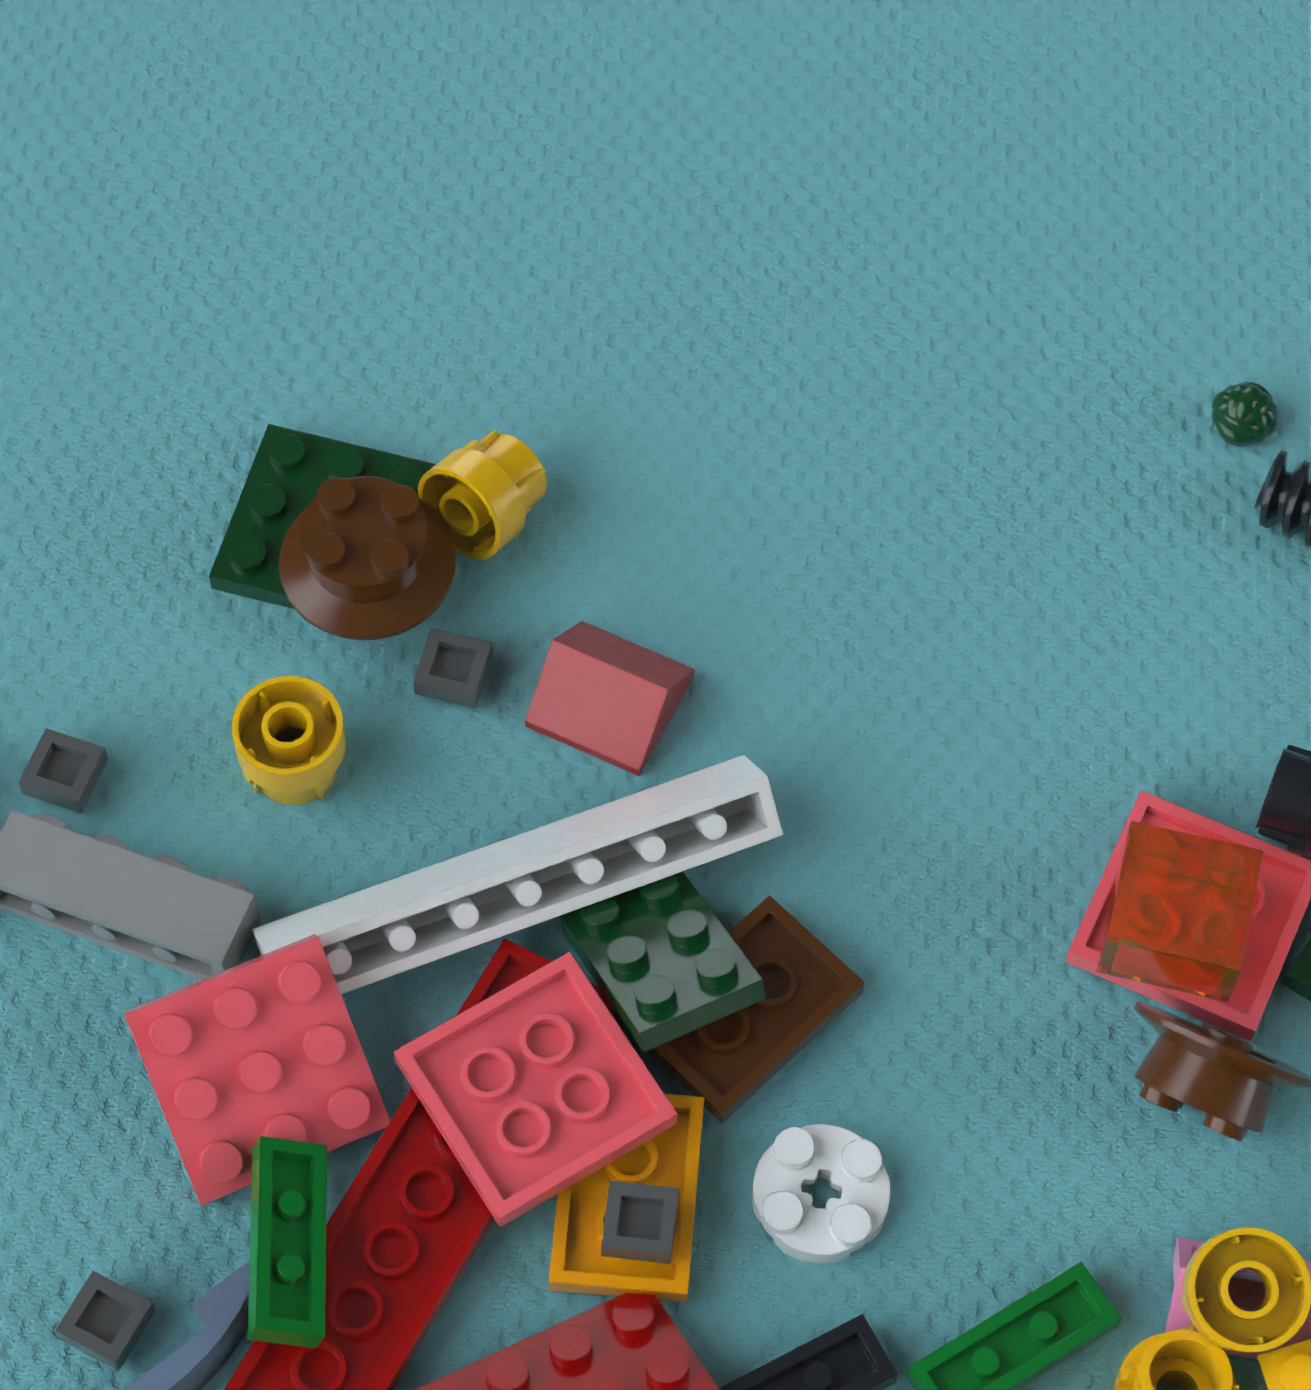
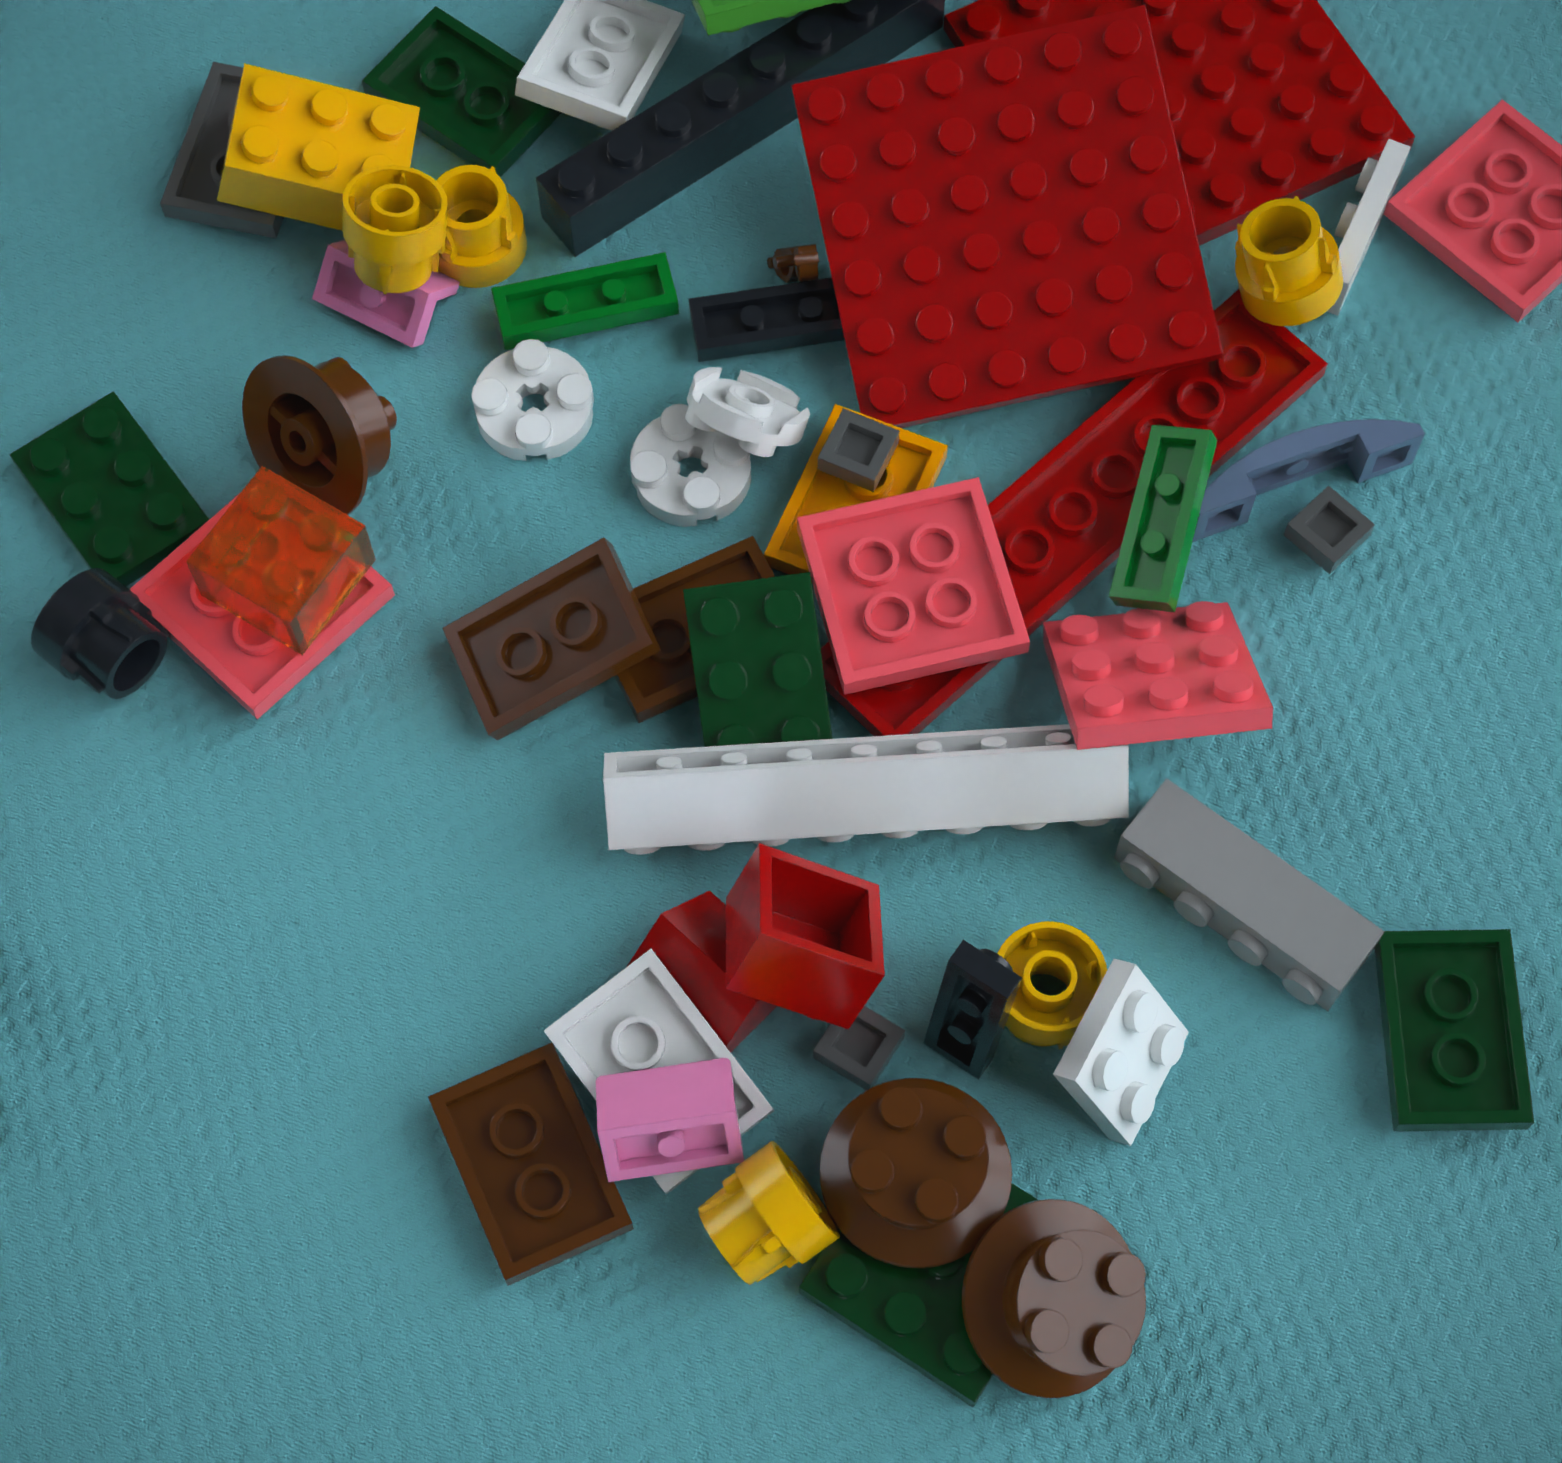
camera: 160 degrees left, 5 degrees up
(63, 770) = (1276, 1050): dark grey plate -> none
(204, 702) = (1122, 1052): none -> white plate
(214, 497) = (1053, 1298): none -> piece
(352, 669) = (972, 1008): none -> black plate
(528, 701) = (804, 937): none -> red piece
(601, 535) = (668, 1119): none -> bright pink panel
(624, 585) = (647, 1023): none -> white plate
(709, 495) = (530, 1163): none -> reddish brown plate
(788, 1209) = (747, 409): none -> white plate
(881, 934) = (551, 639): none -> reddish brown plate
(1026, 1176) = (528, 371): none -> white plate

